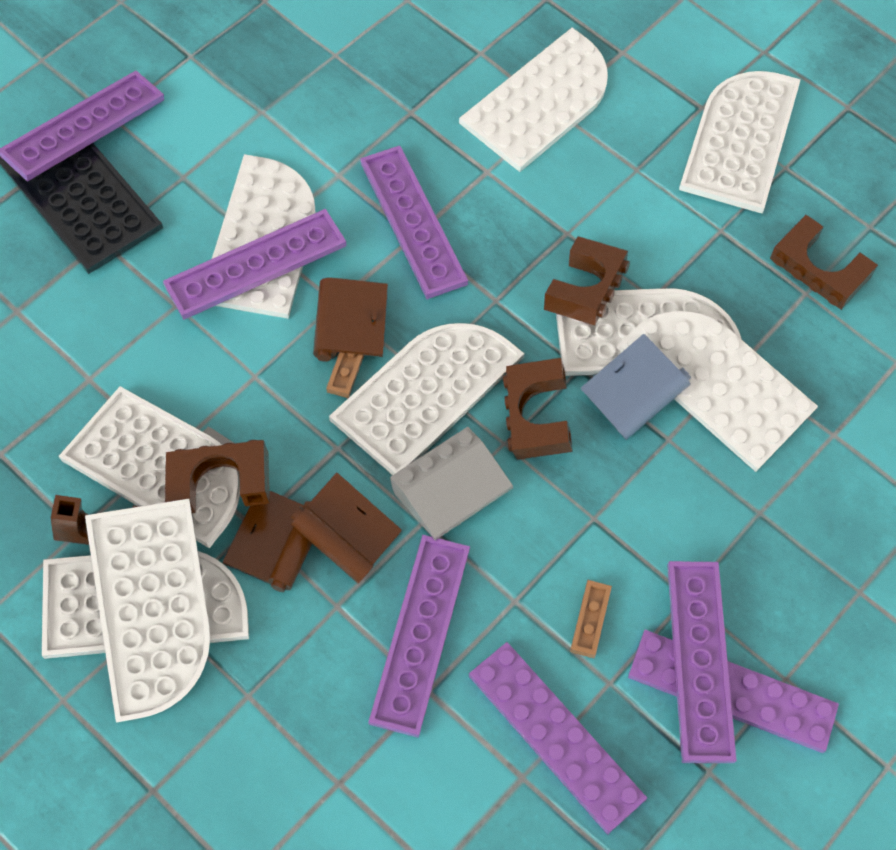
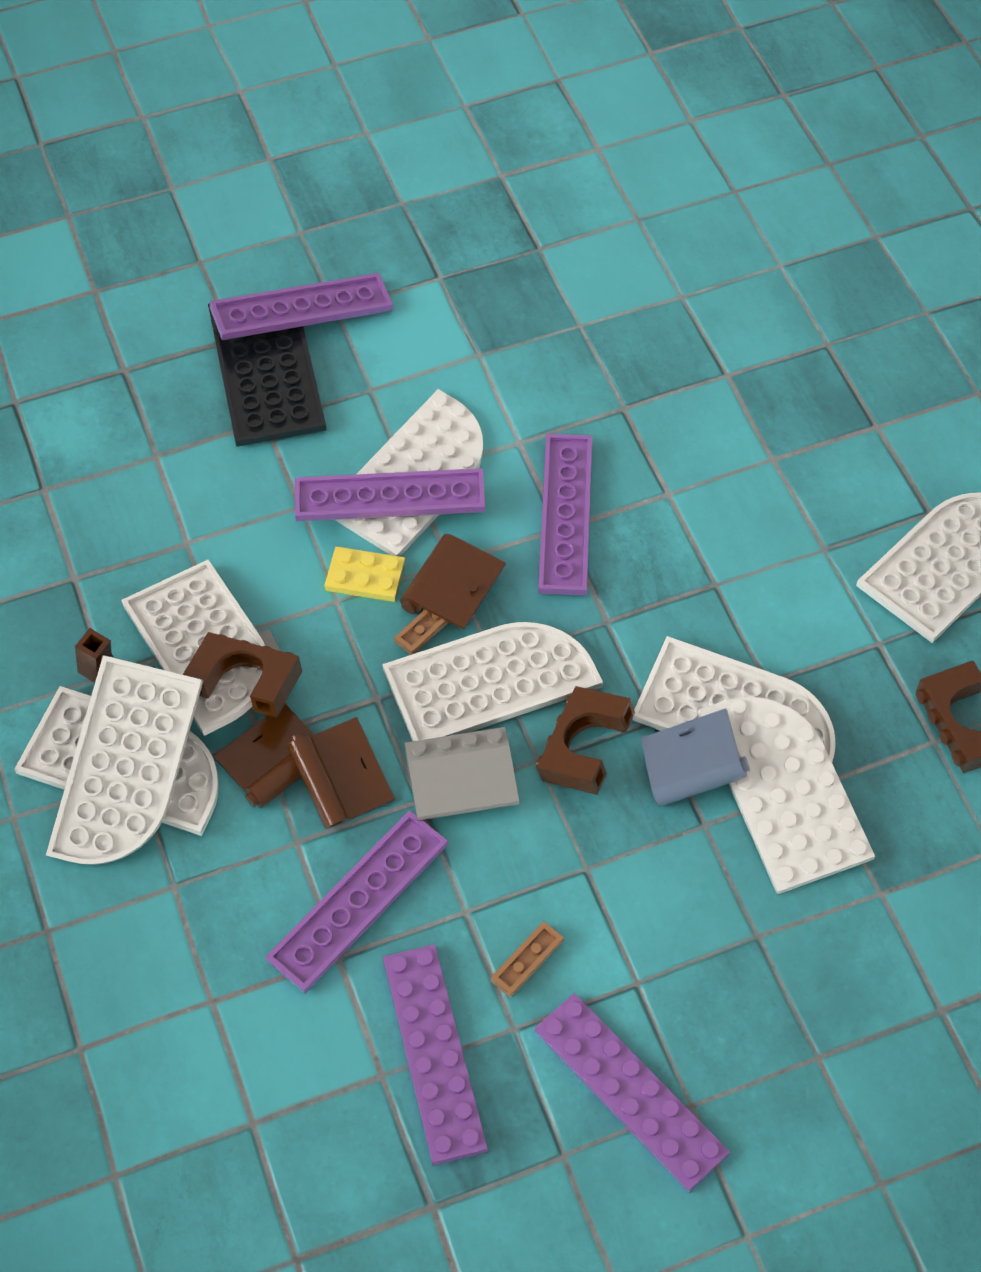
camera: 30 degrees right, 5 degrees down
(267, 342) = (365, 574): none -> light yellow plate
(540, 100) = (763, 444): white plate -> none
(589, 302) = (691, 657): reddish brown arch -> none
(701, 663) = (607, 1046): medium lavender plate -> none

